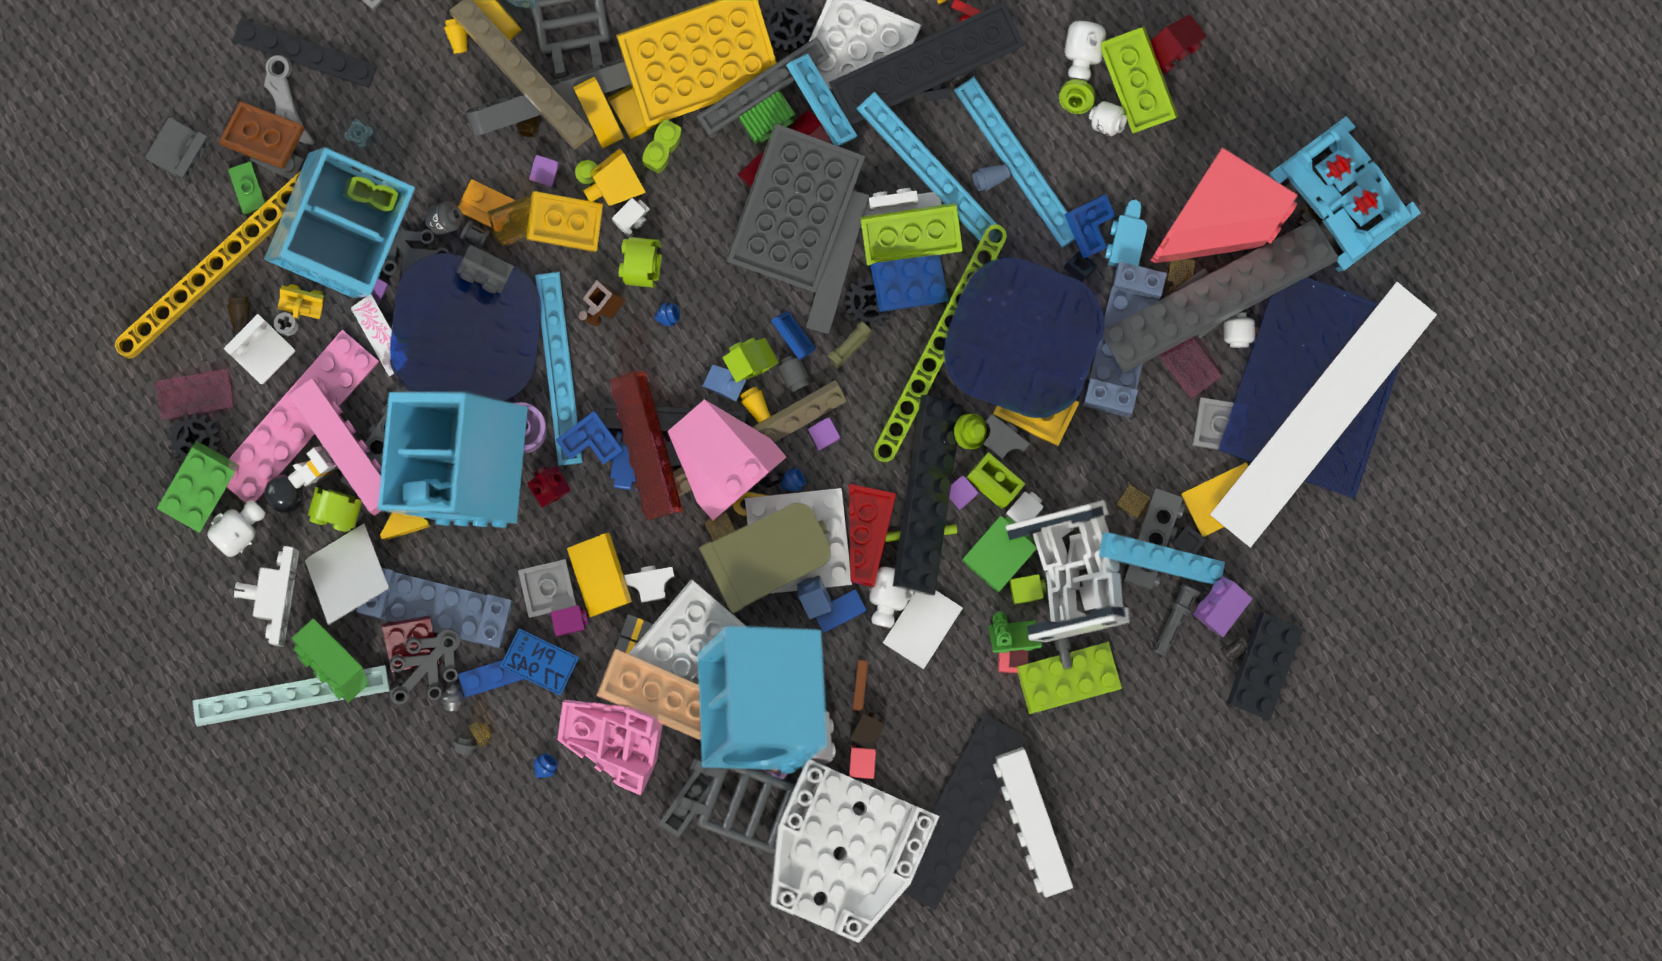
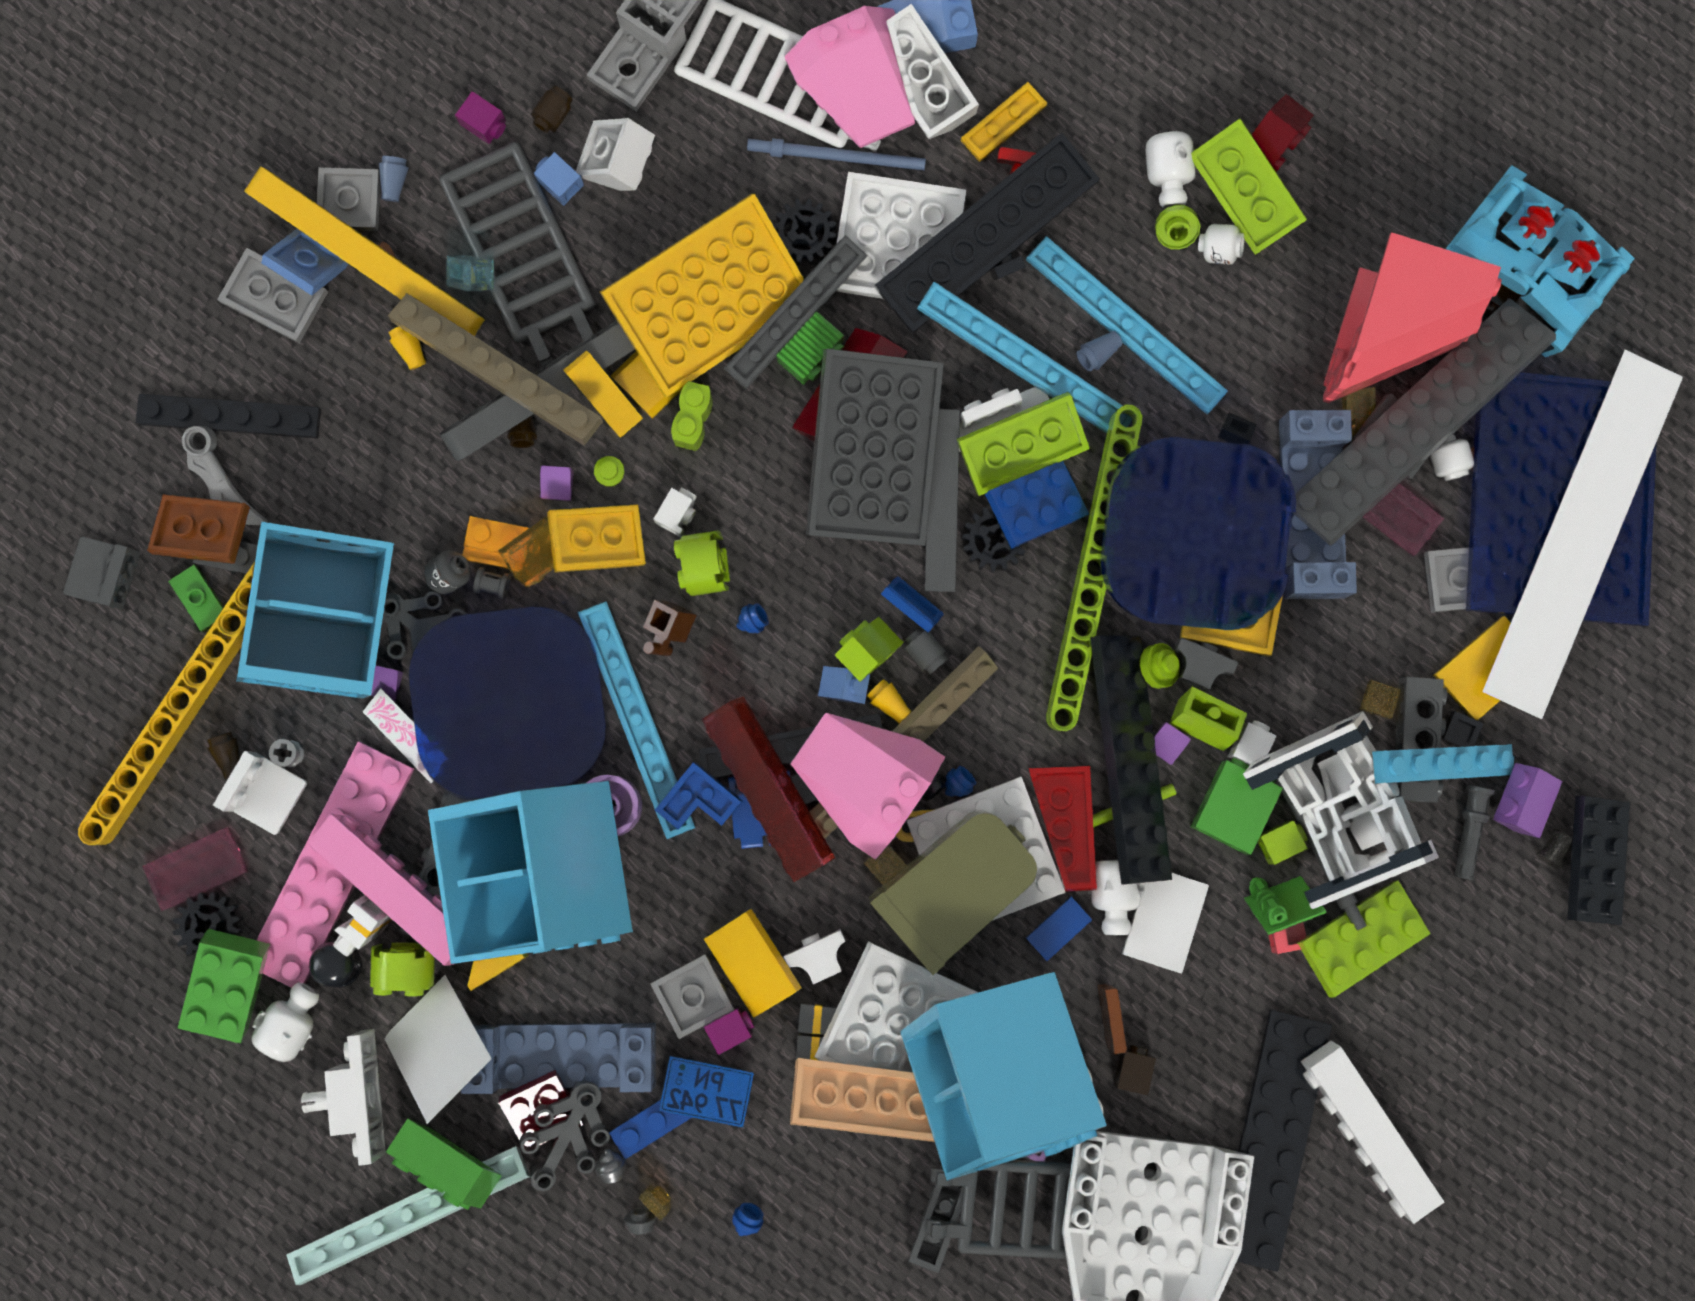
camera: 10 degrees left, 0 degrees up
(301, 302) = (297, 721): yellow hips -> none
(357, 126) = (310, 493): clear light blue plate -> none
(377, 197) = (335, 565): lime brick -> none
(427, 493) = (507, 924): medium azure brick -> none
(485, 270) = (512, 623): dark grey bracket -> none
(548, 486) = (660, 869): dark red brick -> none
(614, 180) = (644, 472): yellow torso -> none
(614, 738) = (824, 1165): bright pink wedge -> none
(814, 597) = (1025, 922): medium blue brick -> none
(821, 100) = (872, 308): medium azure tile -> none
(824, 433) = (981, 715): medium lavender slope -> none
(850, 345) = (989, 592): olive plate -> none
(862, 762) = (1139, 1113): coral panel -> none
(1084, 223) = (1230, 378): blue plate -> none
(1128, 236) = (1285, 379): medium azure hinge -> none

